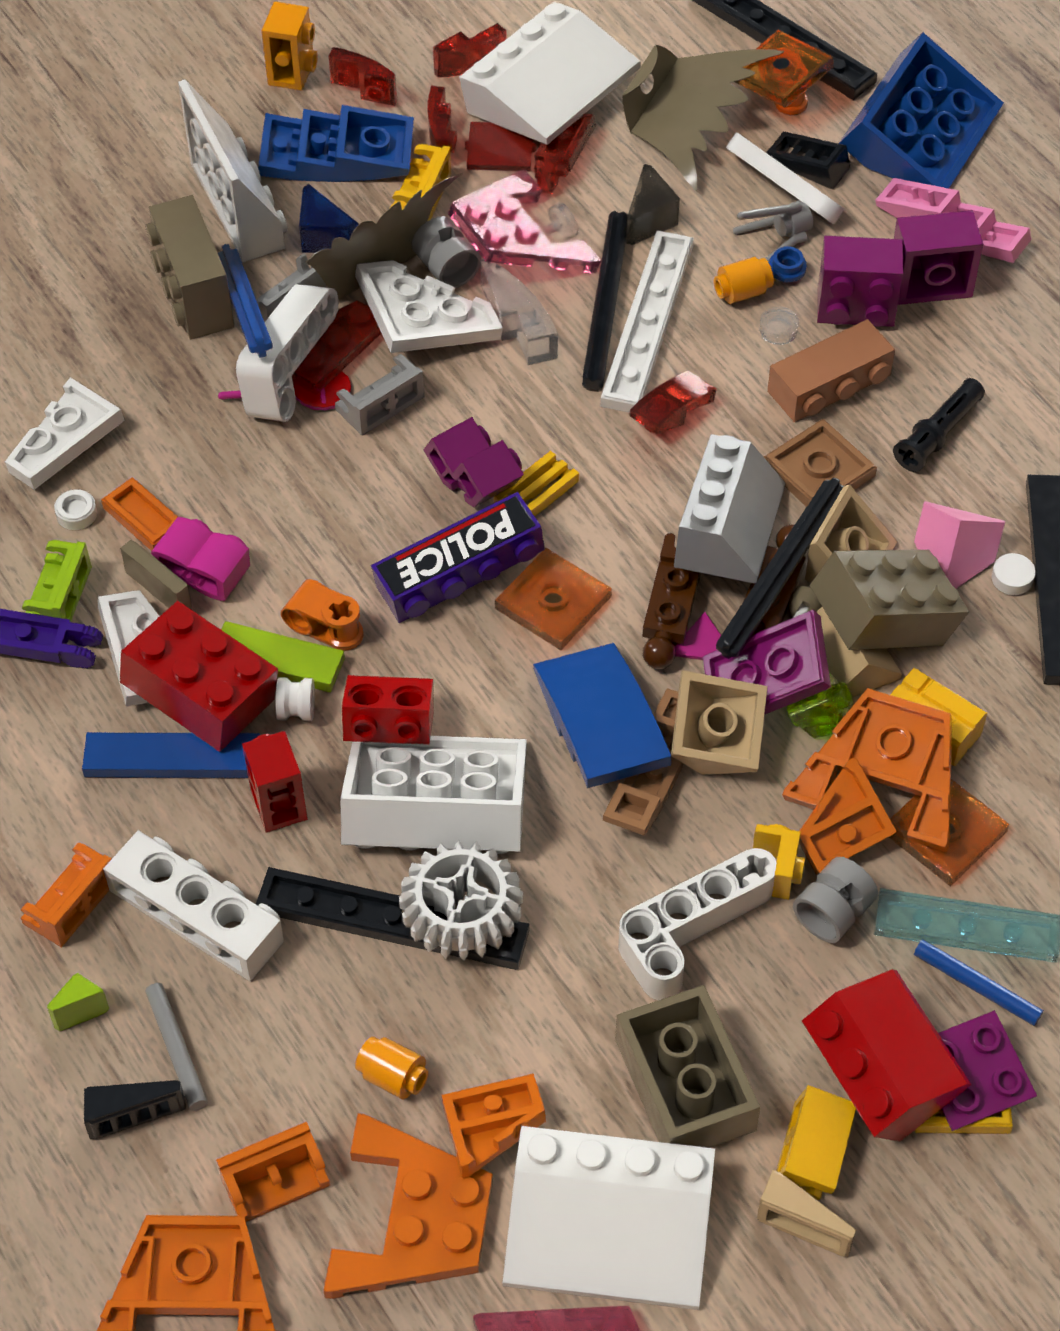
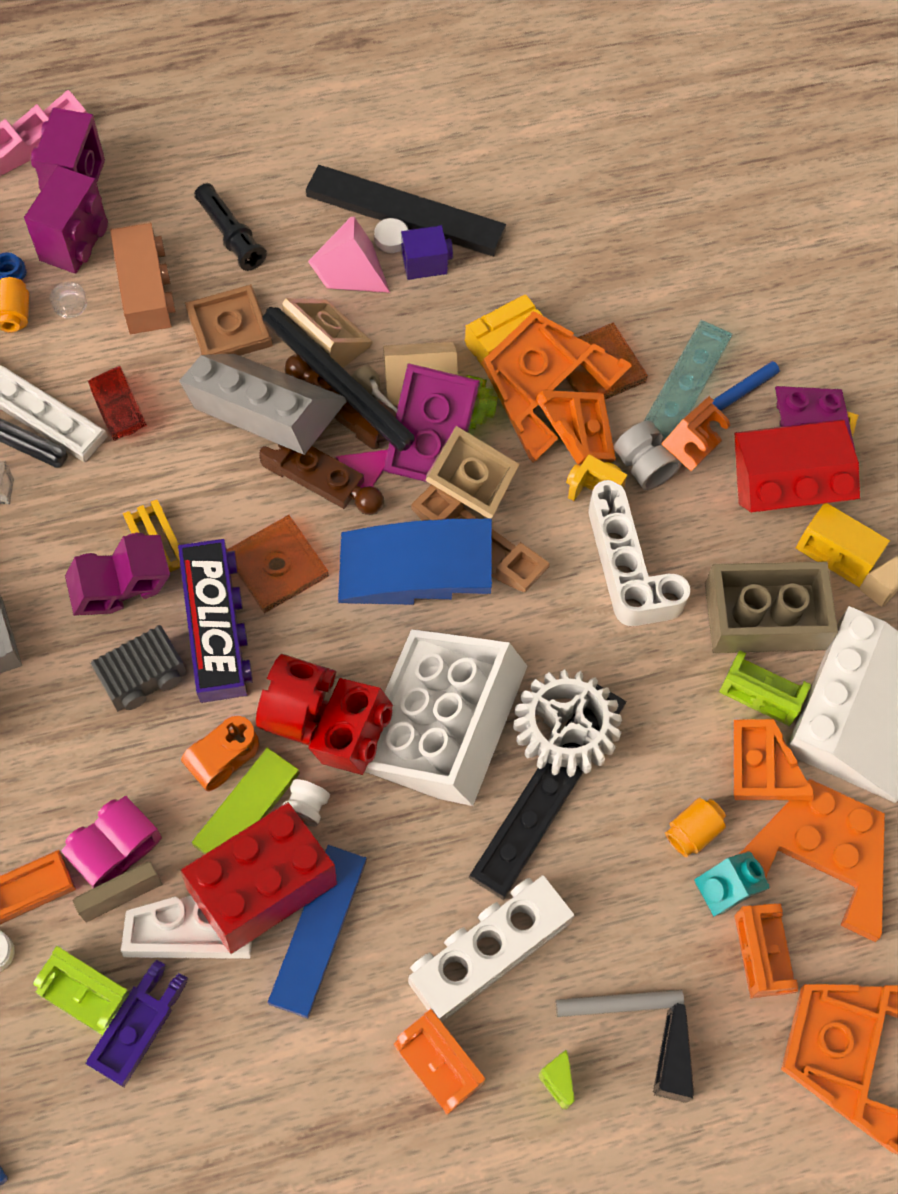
camera: 75 degrees left, 10 degrees up
(275, 781) = (397, 840): red brick -> none
(340, 1116) = (732, 882): none -> teal bracket
(384, 517) = (139, 669): none -> dark grey brick
(395, 641) = (294, 698): none -> red brick
(591, 1091) = (764, 690): none -> lime hinge
(881, 936) = (693, 436): none -> orange hinge
(888, 598) = (401, 315): dark tan brick -> none
(1001, 608) = (425, 252): none -> dark purple brick

